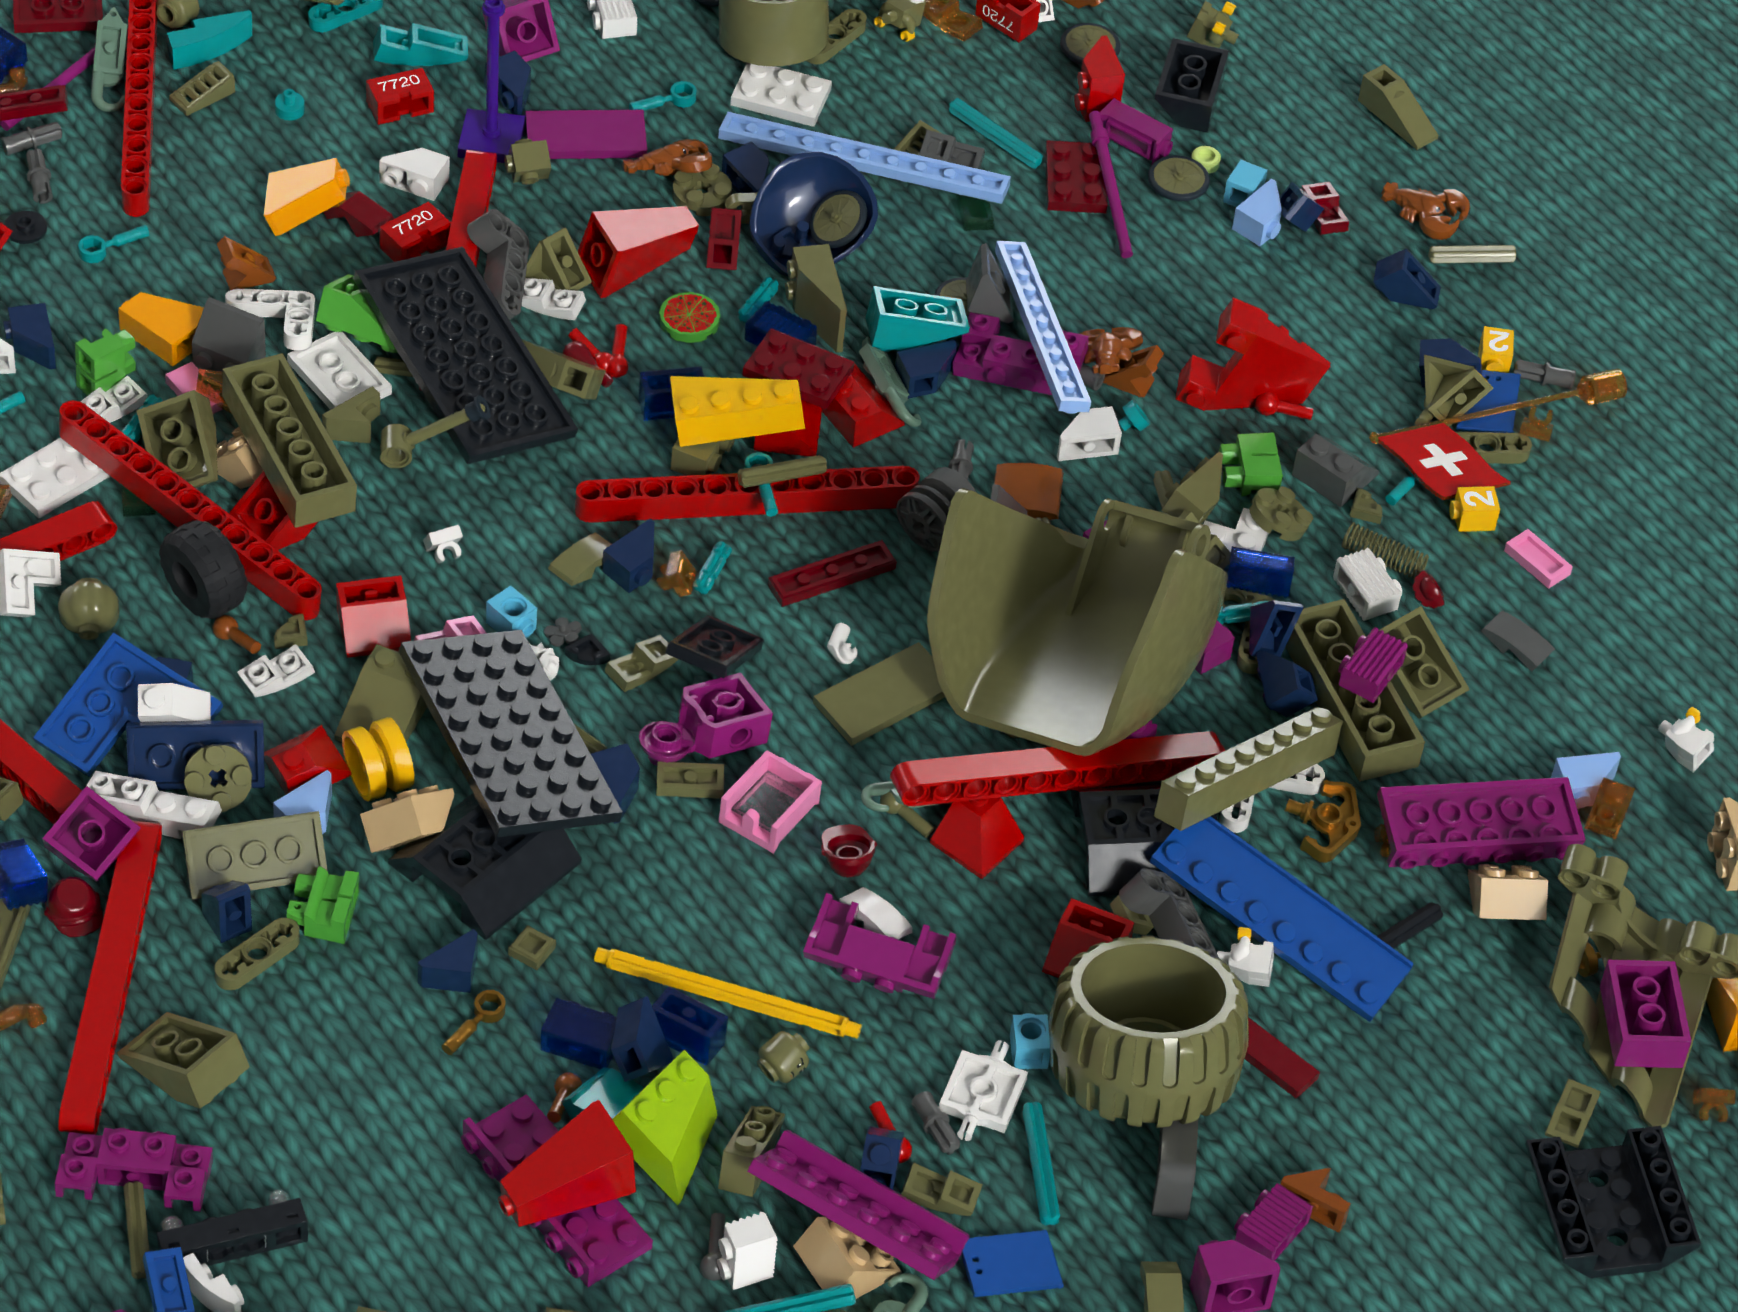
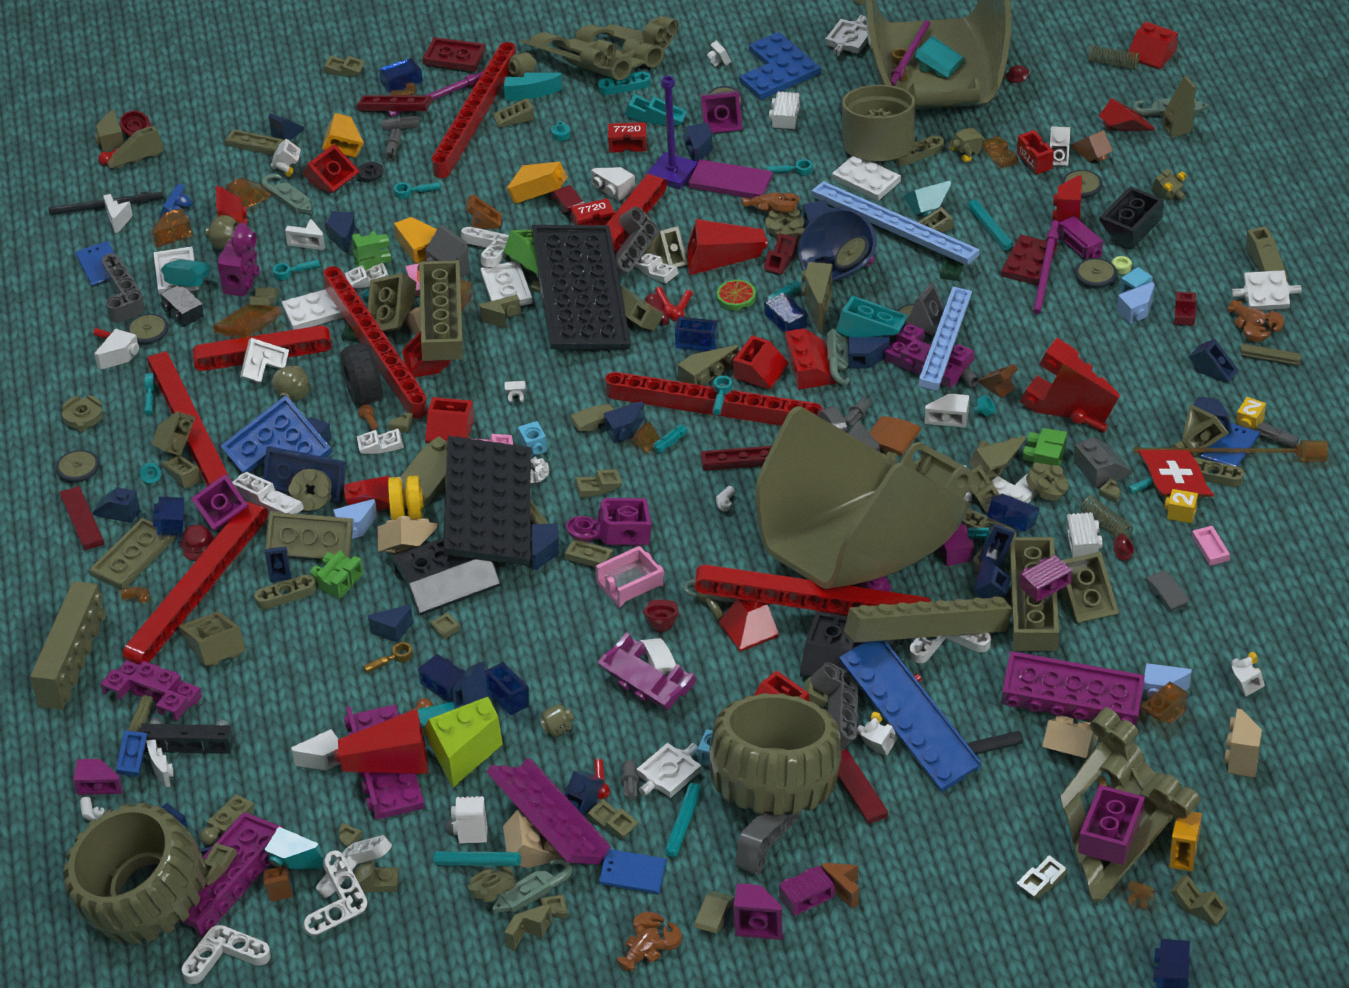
camera: 30 degrees right, 5 degrees down
(108, 59) = (465, 85): sand green plate -> none
(172, 703) = (299, 440): white slope -> none
(399, 440) = (519, 327): olive piece -> none
(454, 1203) = (317, 752): none -> white slope
(528, 161) = (683, 187): olive brick -> none
(563, 632) = (561, 456): dark grey plant -> none
(587, 651) = (568, 469): black tile -> none
(715, 646) = (642, 481): black tile -> none
(728, 992) = (546, 678): yellow piece -> none
(734, 408) = (720, 346): yellow wedge -> none
(751, 1139) = (510, 758): olive slope -> none
(782, 471) = (733, 389): olive axle -> none
(788, 358) = (775, 332): dark red plate -> none
(881, 694) = (727, 534): olive tile -> none
(891, 109) = (927, 198): none -> slope
(945, 148) = (951, 228): dark grey slope -> none
(1109, 348) = (987, 362): dark orange animal -> none
(1299, 207) = (1164, 304): dark blue slope -> none
(1337, 822) = (984, 672): pearl gold piece -> none
(1421, 159) = (1266, 290): none -> white plate
(1537, 428) = (1252, 466): clear orange tile -> none
(1638, 1204) = (1011, 936): black slope -> none

